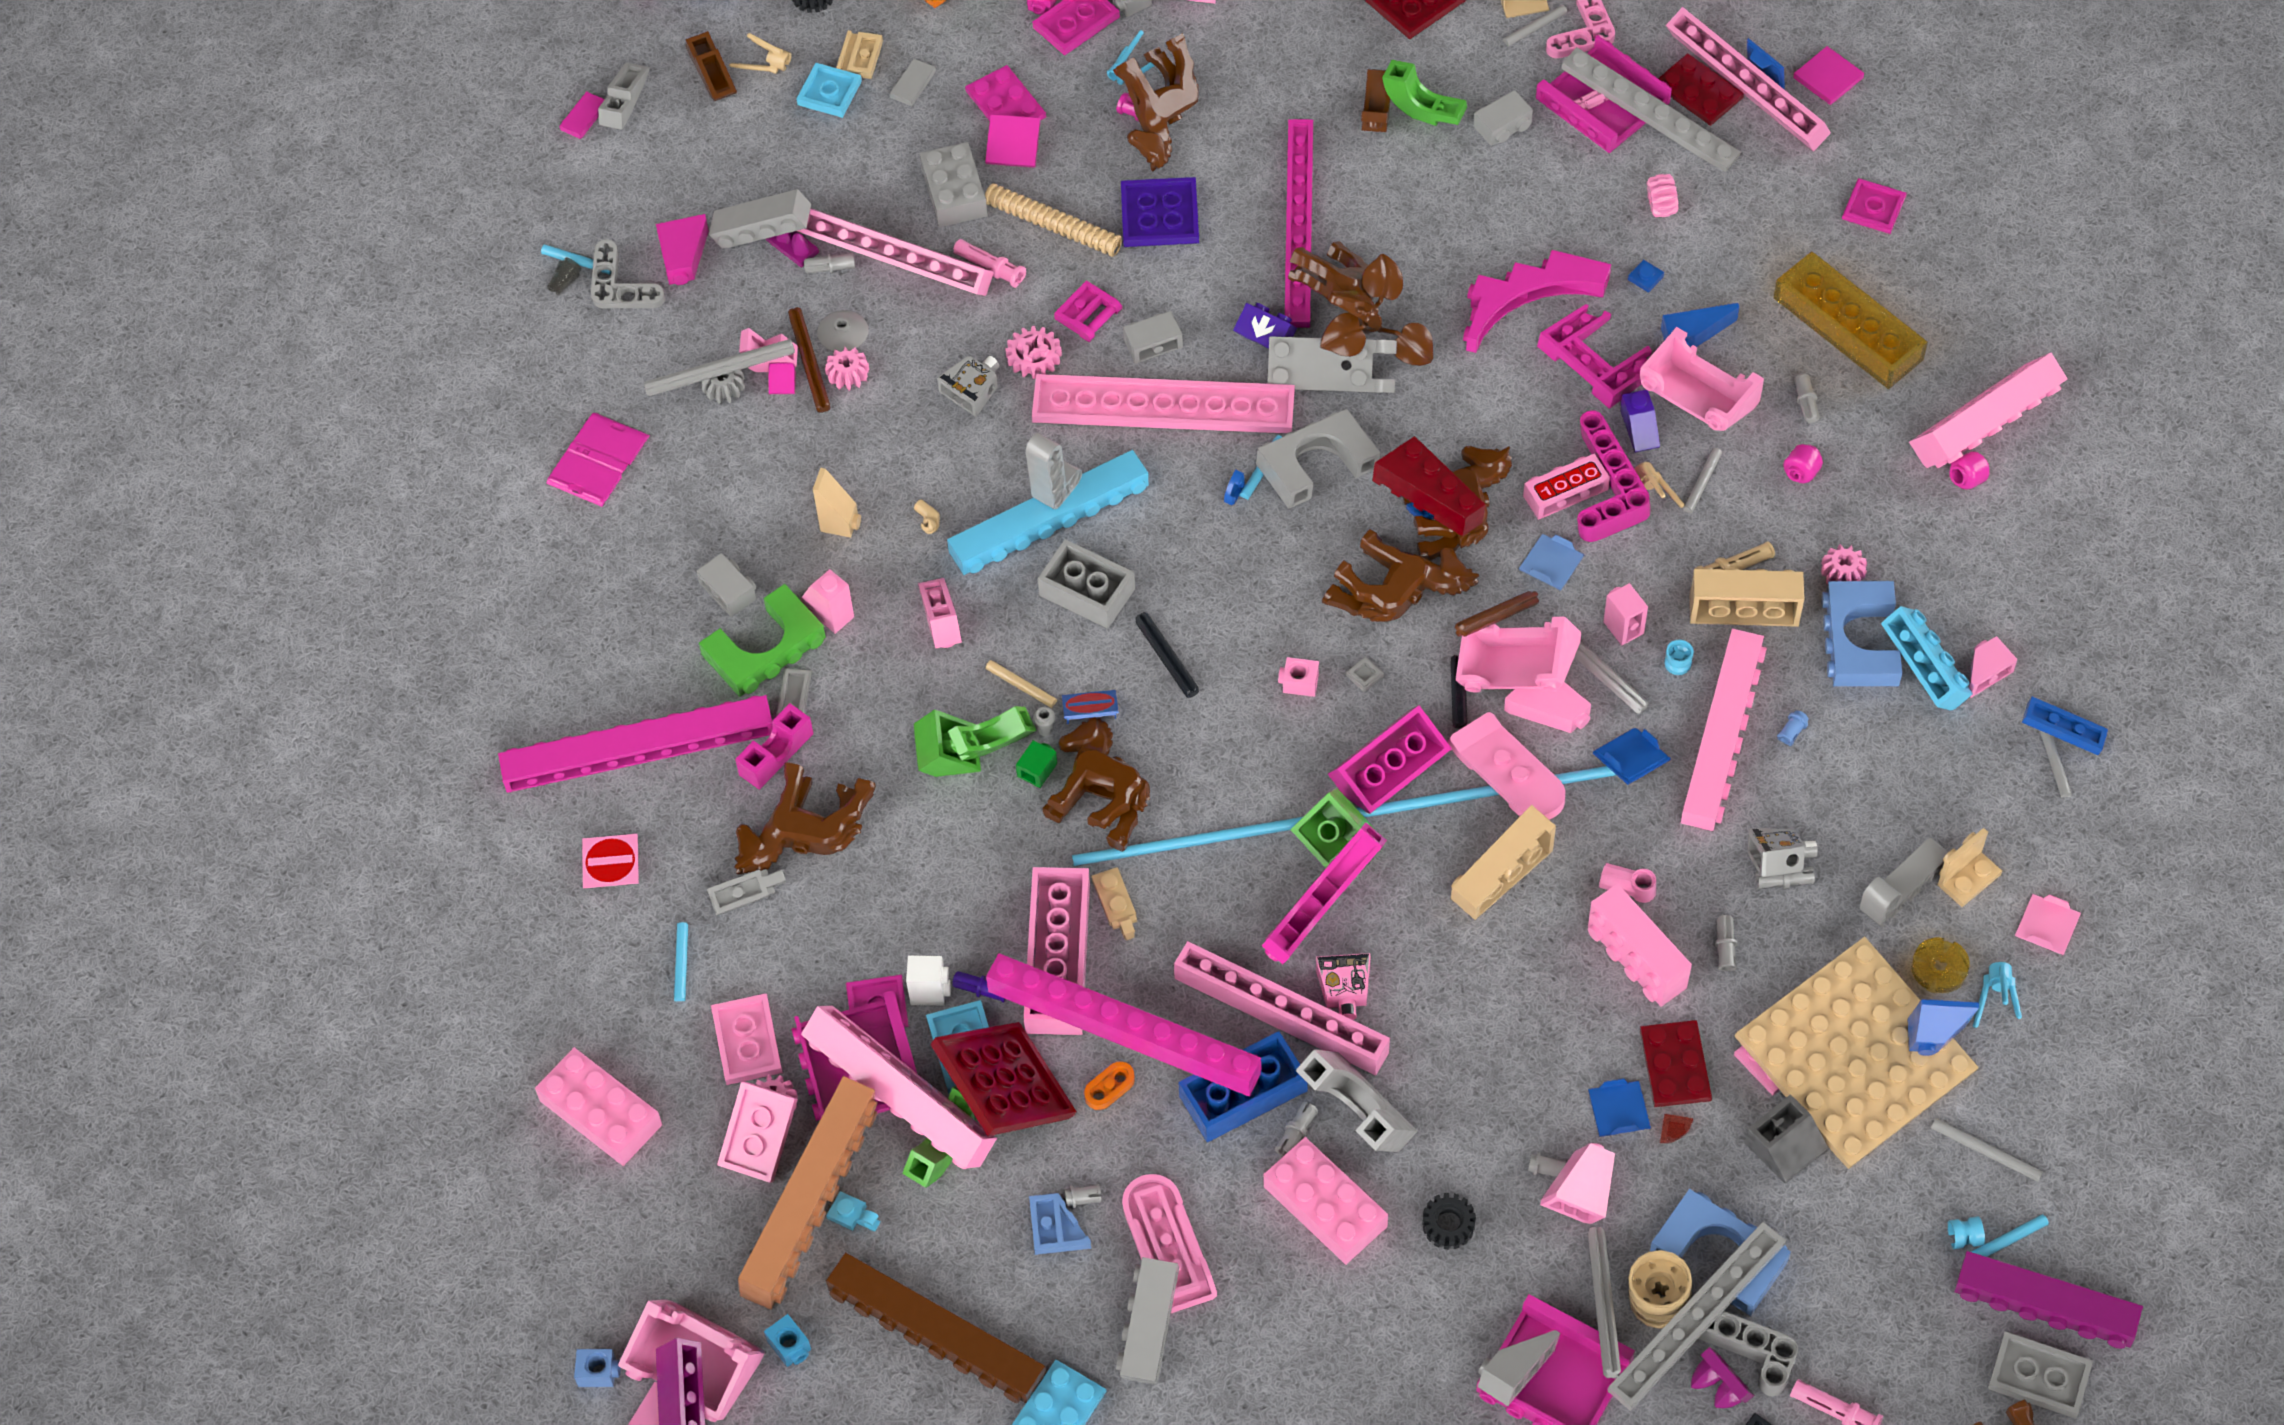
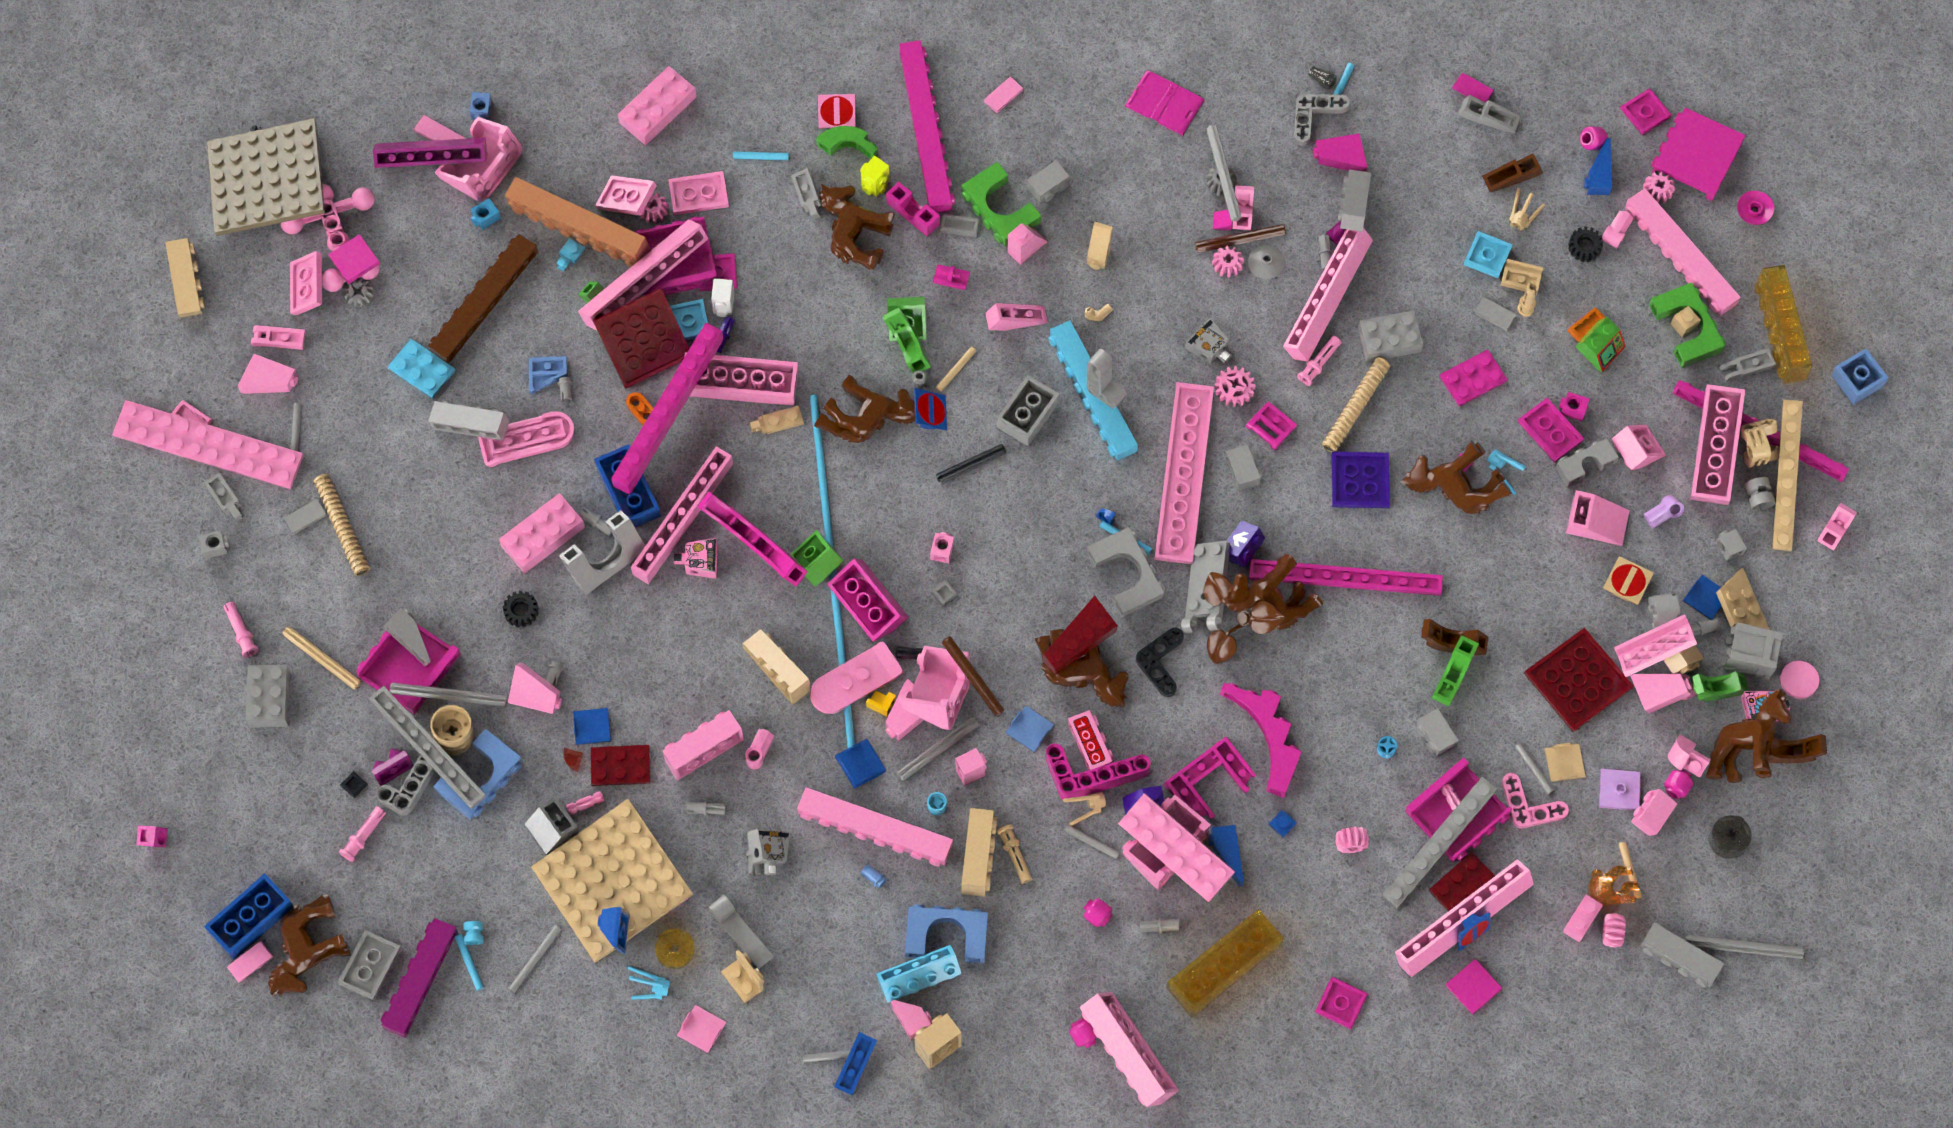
camera: 90 degrees right, 10 degrees up
(583, 652) = (1003, 94): none -> bright pink tile
(653, 838) = (846, 136): none -> bright green arch
(724, 795) = (874, 176): none -> neon yellow brick
(881, 693) = (951, 277): none -> dark pink hips
(901, 39) = (1527, 301): none -> tan pin
(1013, 141) = (1431, 379): dark pink tile -> none
(1036, 763) = (887, 374): green brick -> none
(1403, 583) = (1015, 621): reddish brown animal -> none
(1433, 425) = (1154, 656): none -> black beam
(1532, 165) = (1386, 742): none -> dark azure wheel
(1539, 734) = (881, 703): none -> yellow panel
(1712, 363) = (1176, 847): none -> bright pink brick
(1739, 1103) = (585, 803): none -> bright pink axle
(1843, 565) = (996, 929): bright pink gear -> none
(2024, 617) = (937, 1040): none -> tan brick

